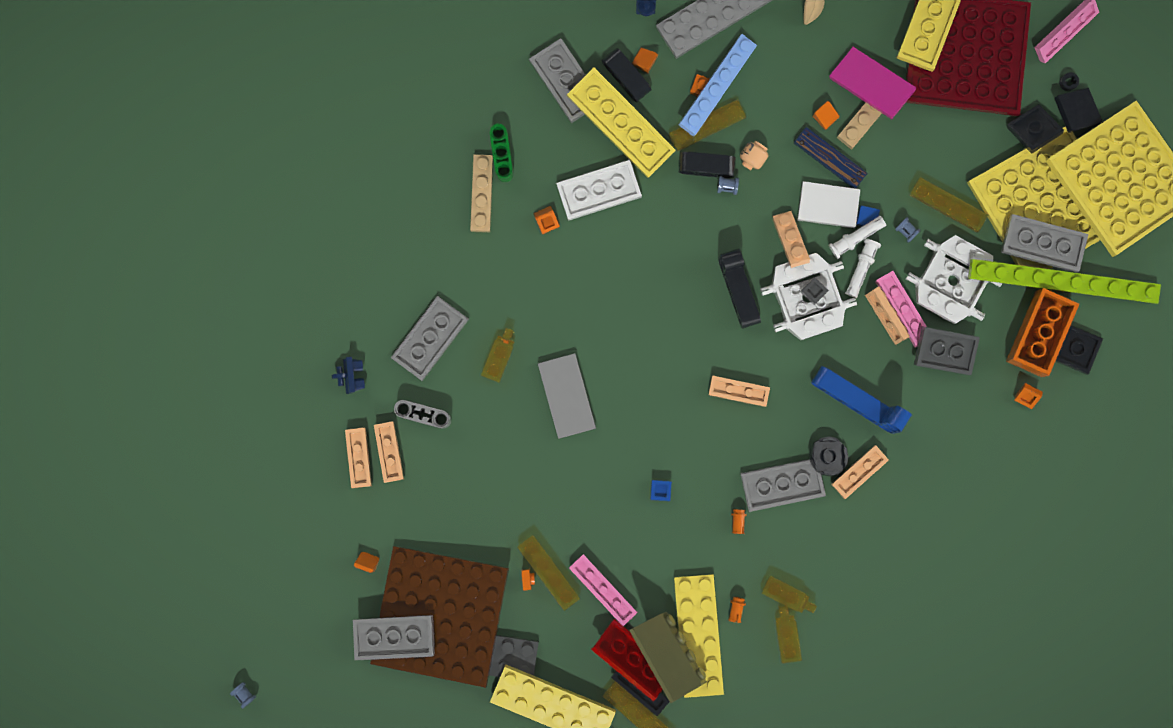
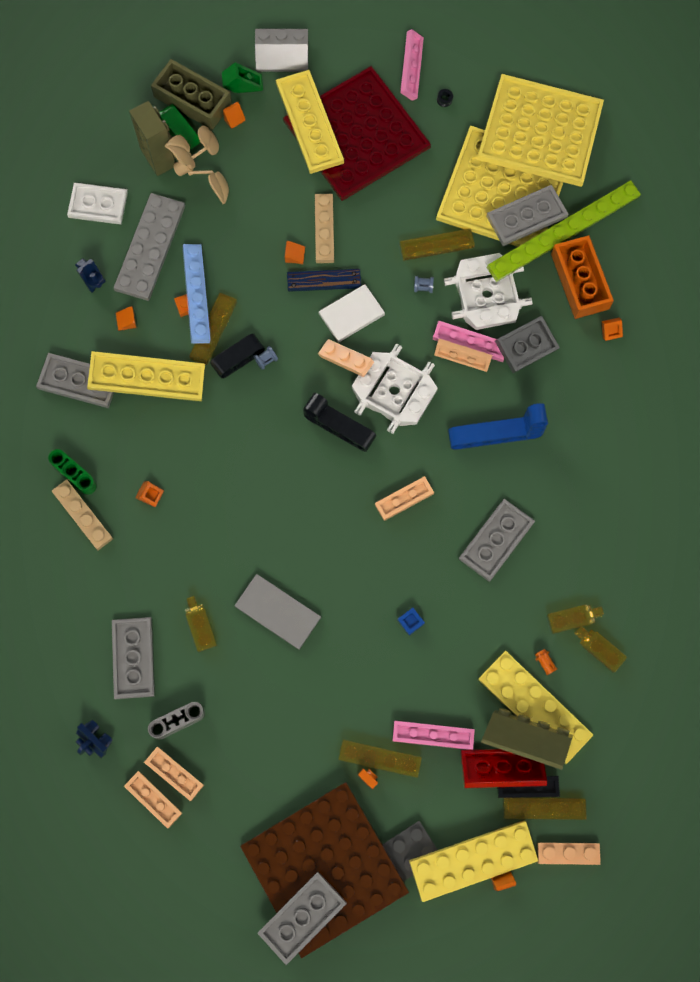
camera: 45 degrees left, 10 degrees down
(367, 562) = (229, 877): orange slope -> none
(599, 190) = (171, 439): white plate -> none
(626, 75) = (121, 340): black beam -> none
(738, 521) = (488, 594): orange pin -> none
(754, 155) = (266, 321): light nougat head -> none
(814, 291) = (395, 379): dark grey tile -> none
(828, 456) = (511, 490): black tile -> none
(849, 241) = (389, 325): white pin -> none
(859, 472) = (544, 482): light nougat plate -> none
(865, 259) = (412, 329): white pin -> none
(866, 215) = (387, 299): blue tile -> none
(872, 83) = (308, 204): dark pink tile -> none
(1035, 128) = (450, 145): black tile -> none
(1078, 110) = (468, 110): black tile -> none
(1079, 350) = (618, 269): black tile -> none

